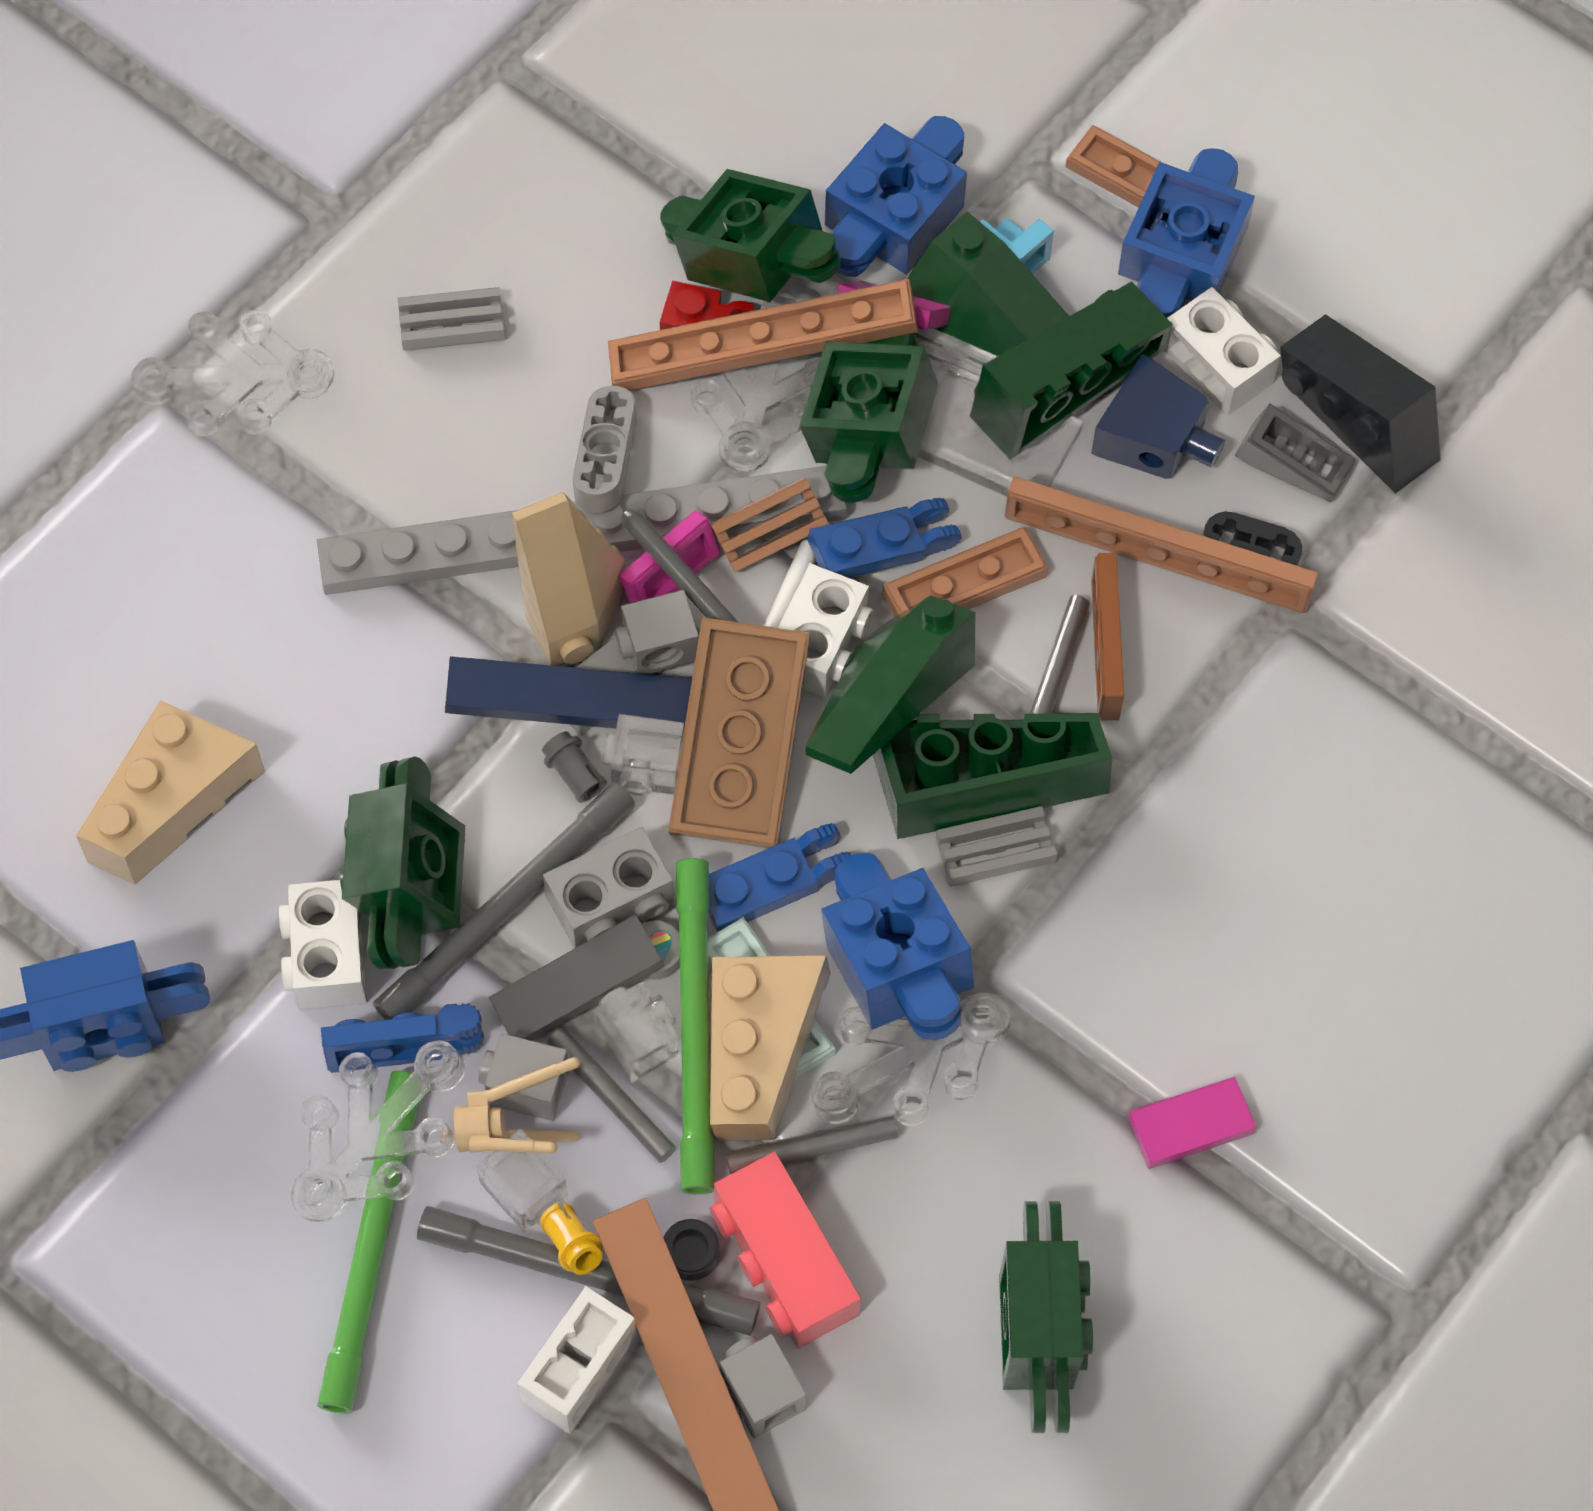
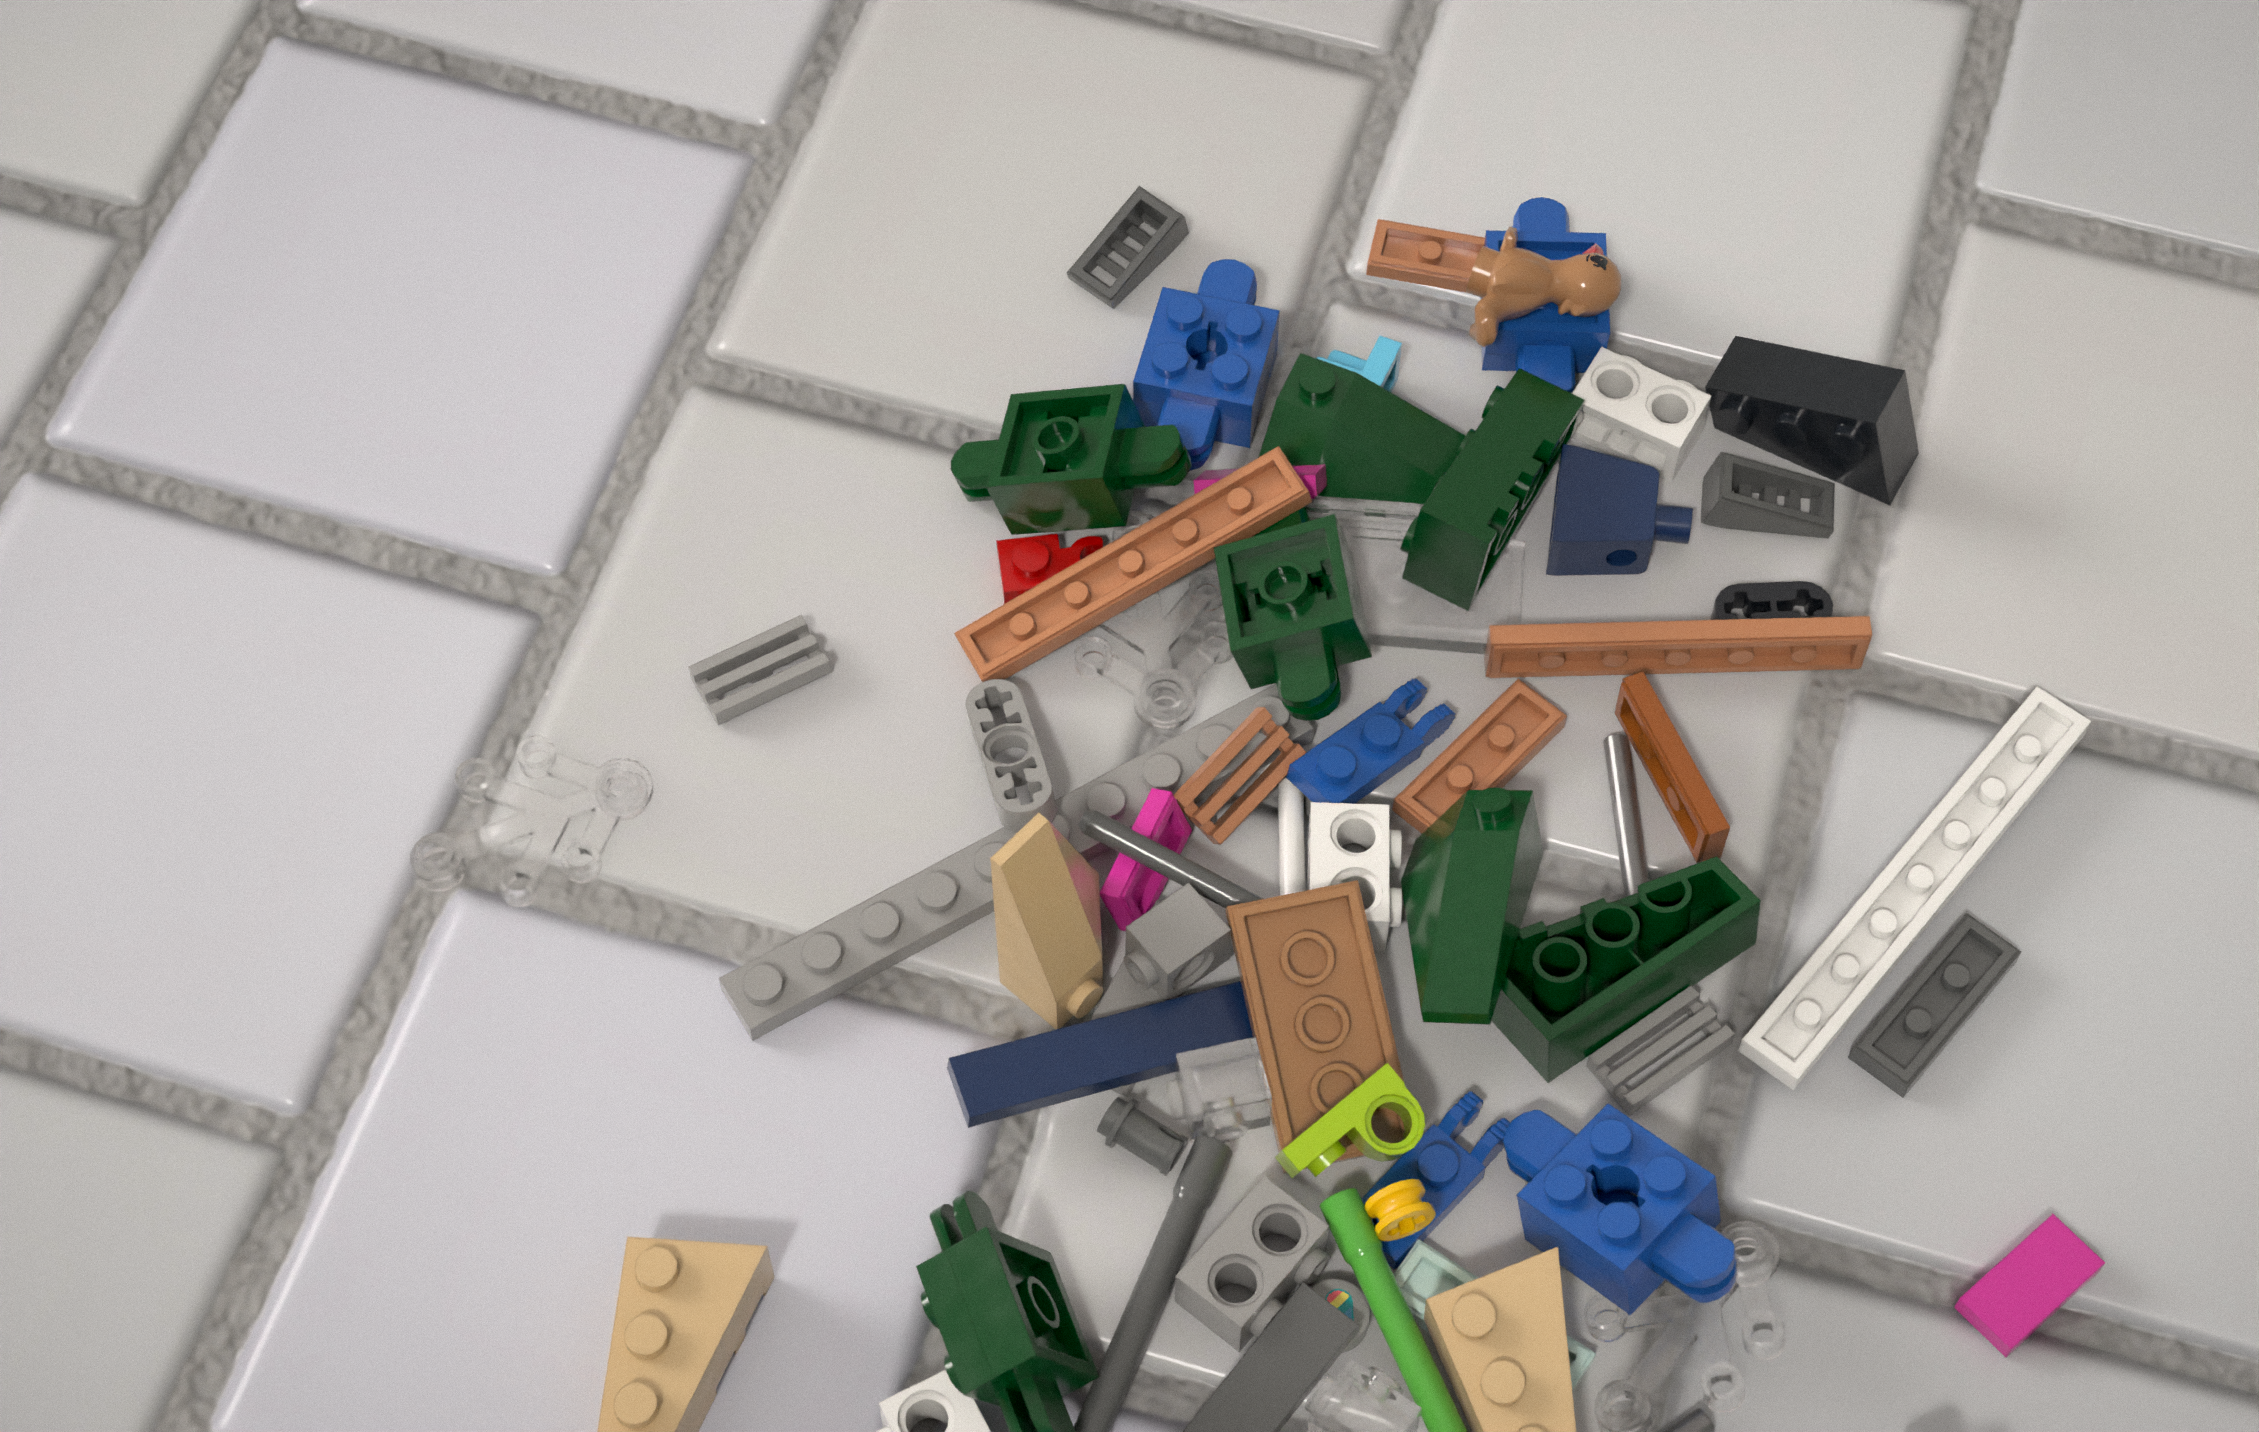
camera: 20 degrees left, 5 degrees down
(694, 817) = (1352, 1116): none -> lime plate
(730, 888) = (1400, 1210): none -> yellow bush
(888, 62) = (1139, 208): none -> dark grey slope
(1160, 212) = (1523, 281): none -> medium nougat animal
(1227, 889) = (1934, 1005): none -> dark grey tile
(1257, 794) = (1913, 888): none -> white plate

